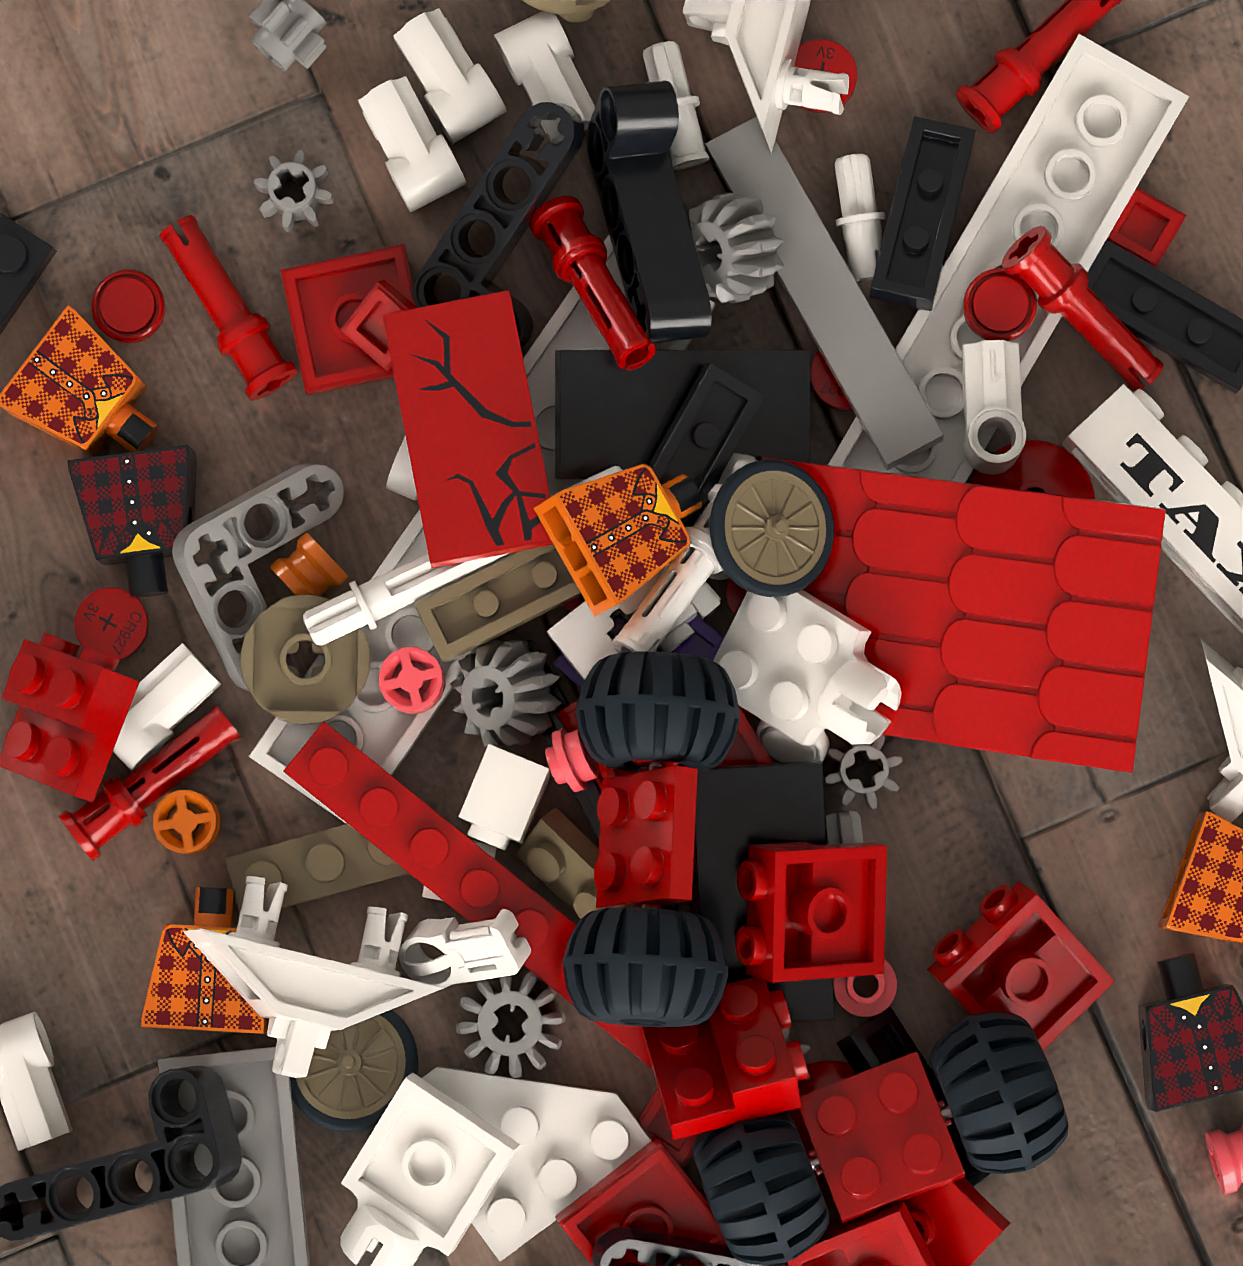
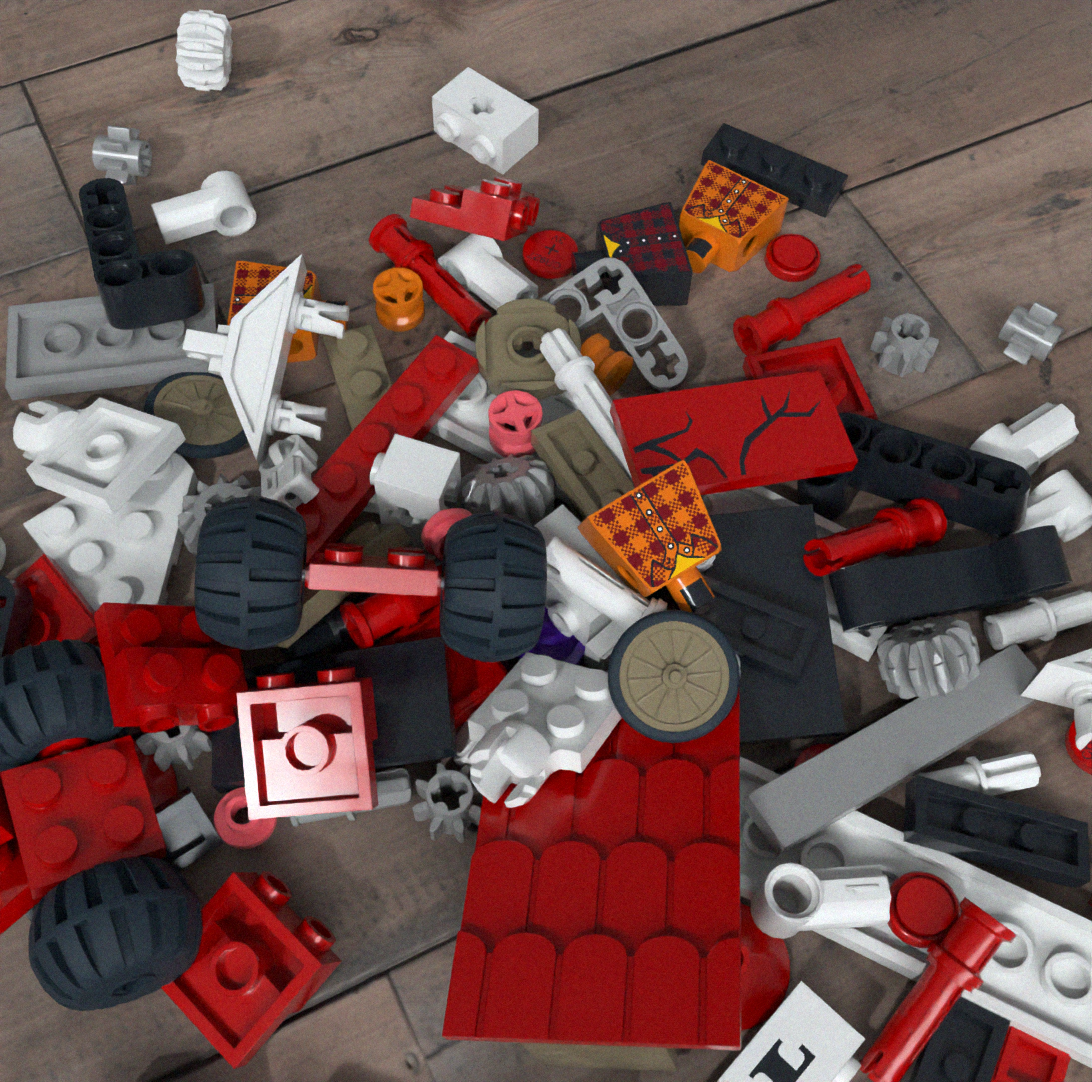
camera: 80 degrees right, 25 degrees down
(417, 157) = (965, 416): white piece -> none

